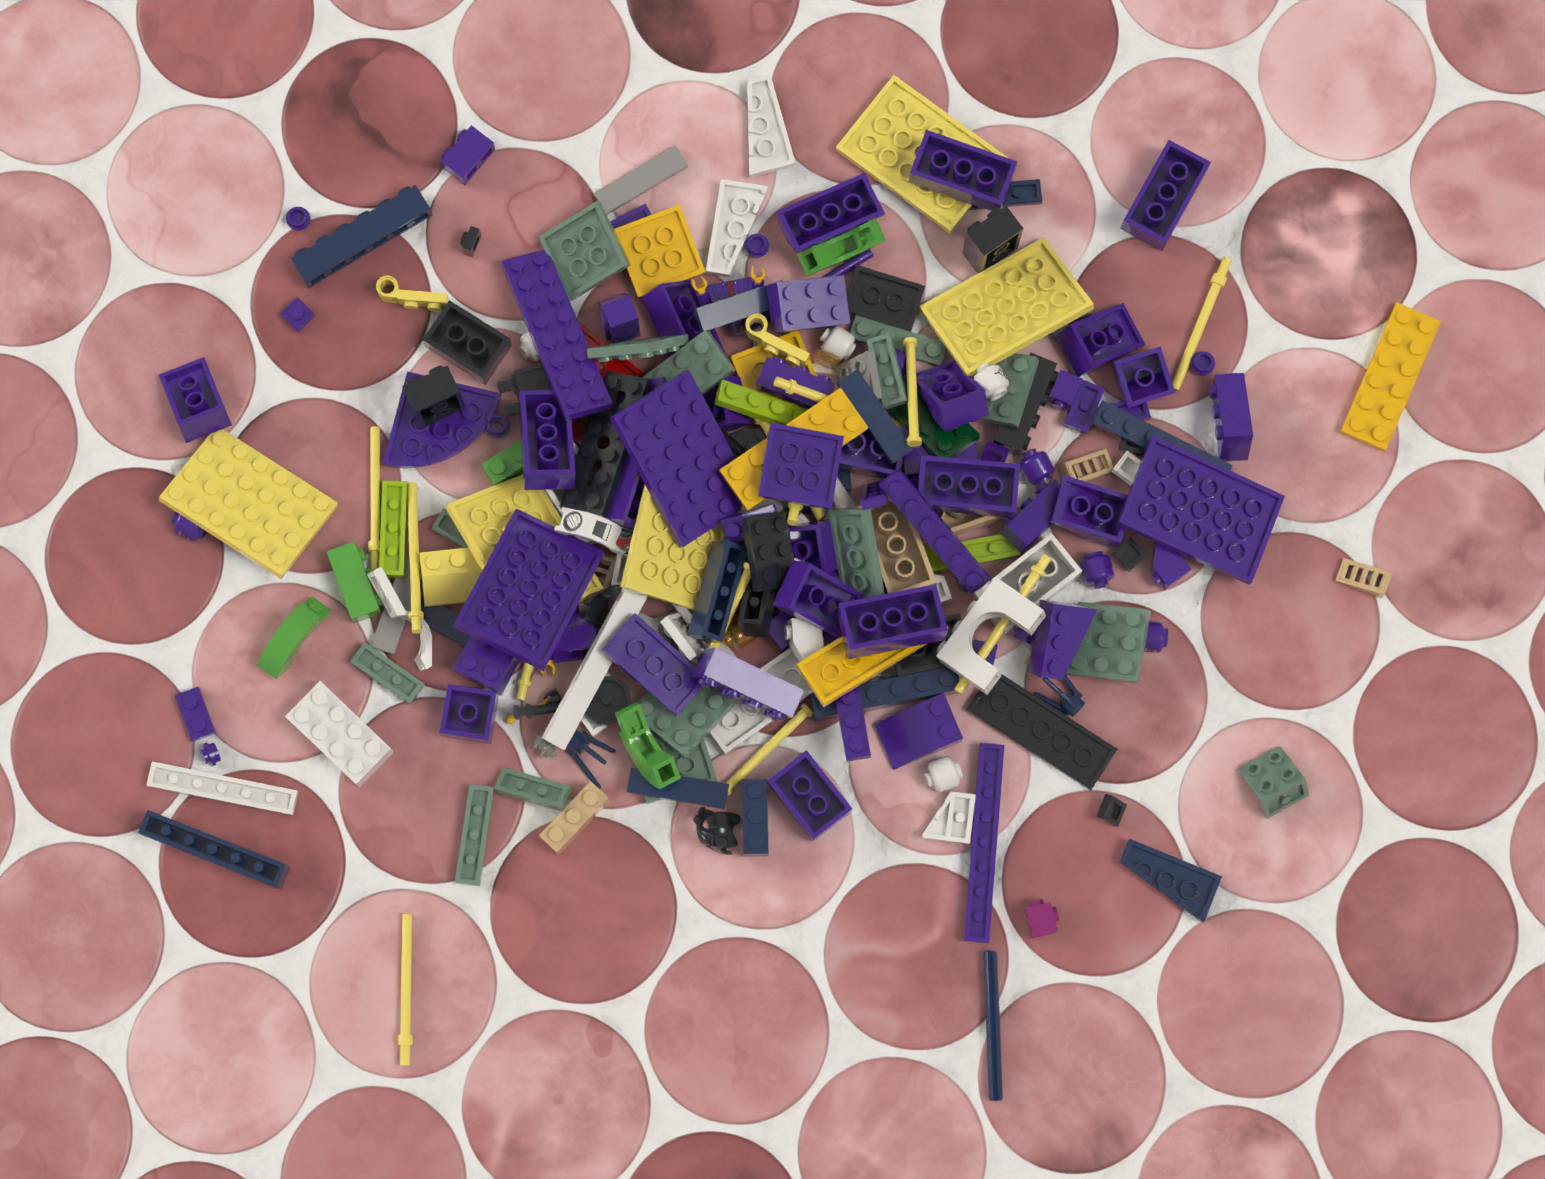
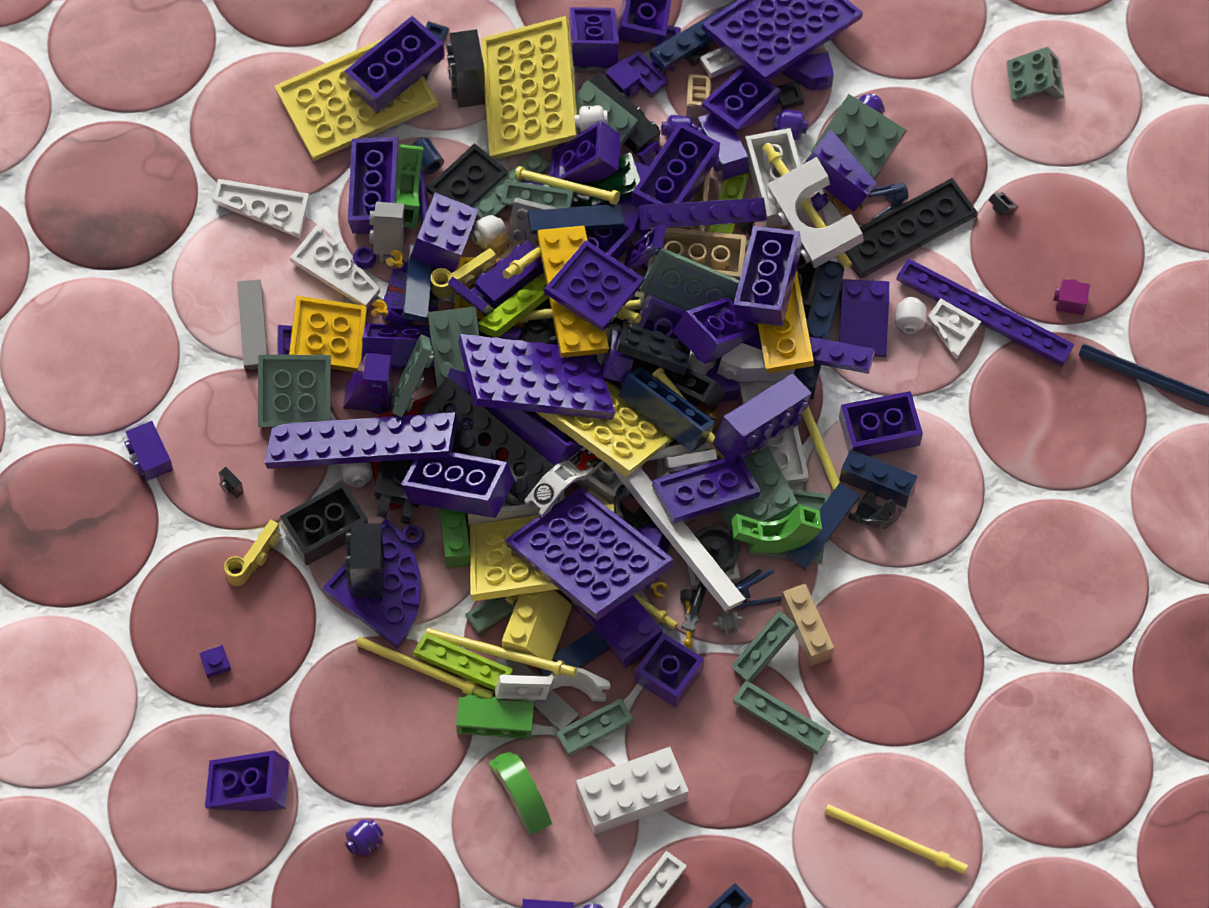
camera: 65 degrees left, 15 degrees down
(248, 502) = (372, 775): light yellow plate -> none
(298, 218) = (124, 621): dark purple plate -> none
(361, 236) = (173, 572): dark blue brick -> none
(748, 361) = (472, 296): none -> dark purple plate
(782, 251) = (388, 229): none -> light grey brick
(891, 249) = (431, 158): none -> dark blue brick
(1176, 879) = (1084, 182): dark blue wing -> none

